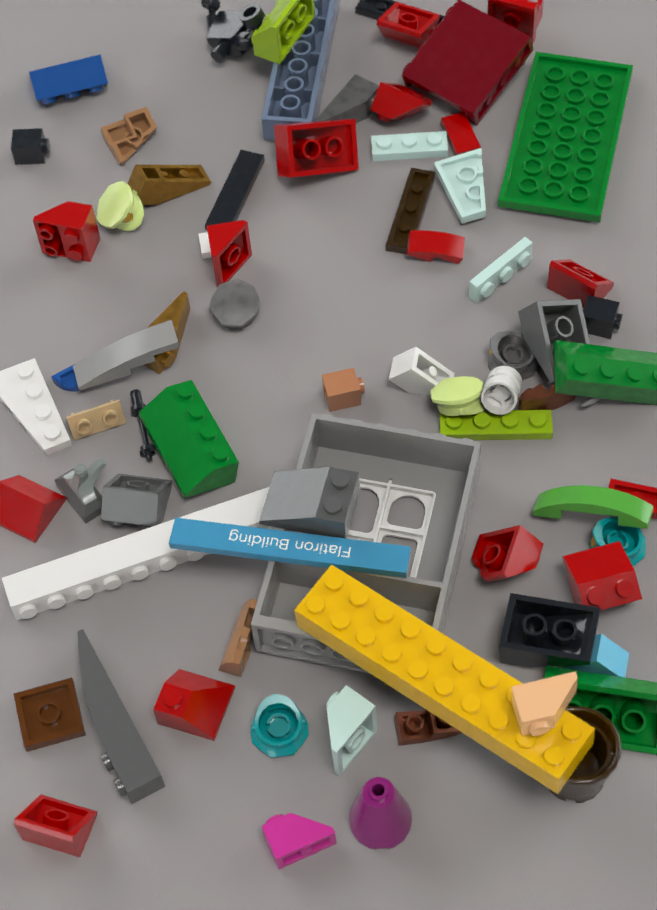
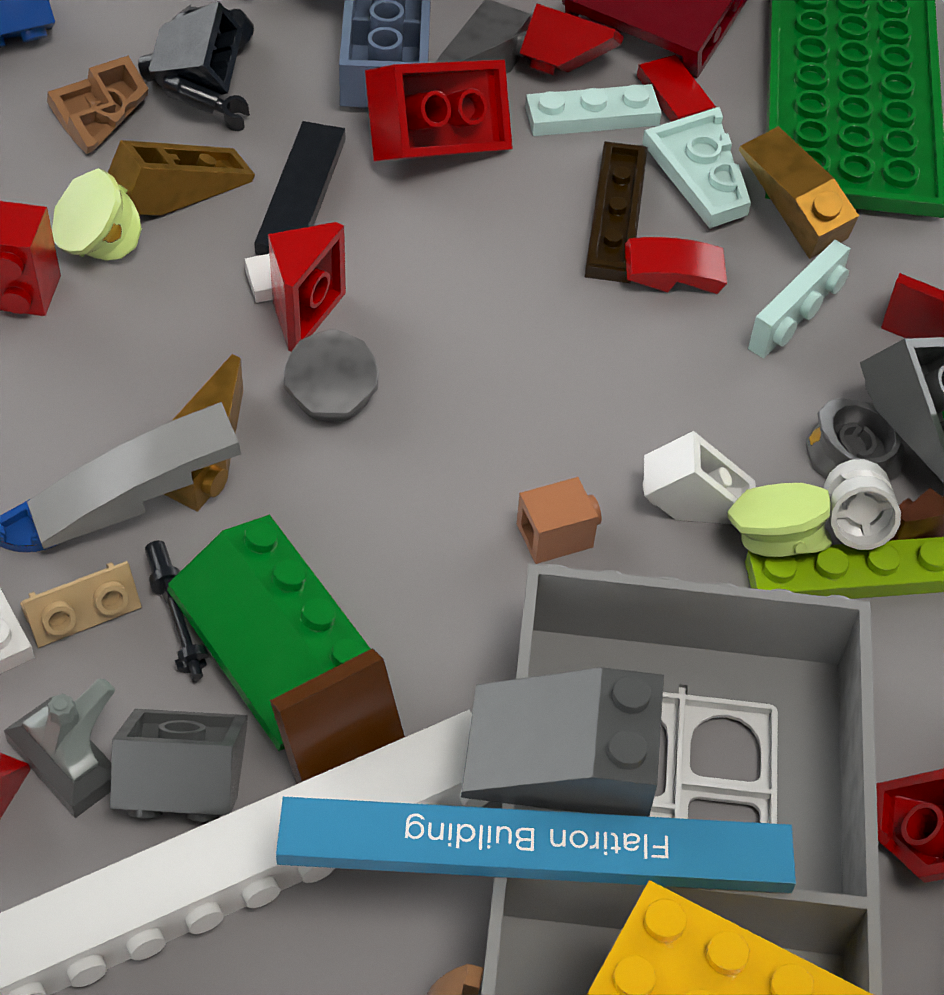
camera: 15 degrees left, 5 degrees down
(185, 108) = (198, 57): none -> black torso
(212, 482) = (338, 716): none -> reddish brown tile
(512, 204) = (800, 191): none -> pearl gold slope

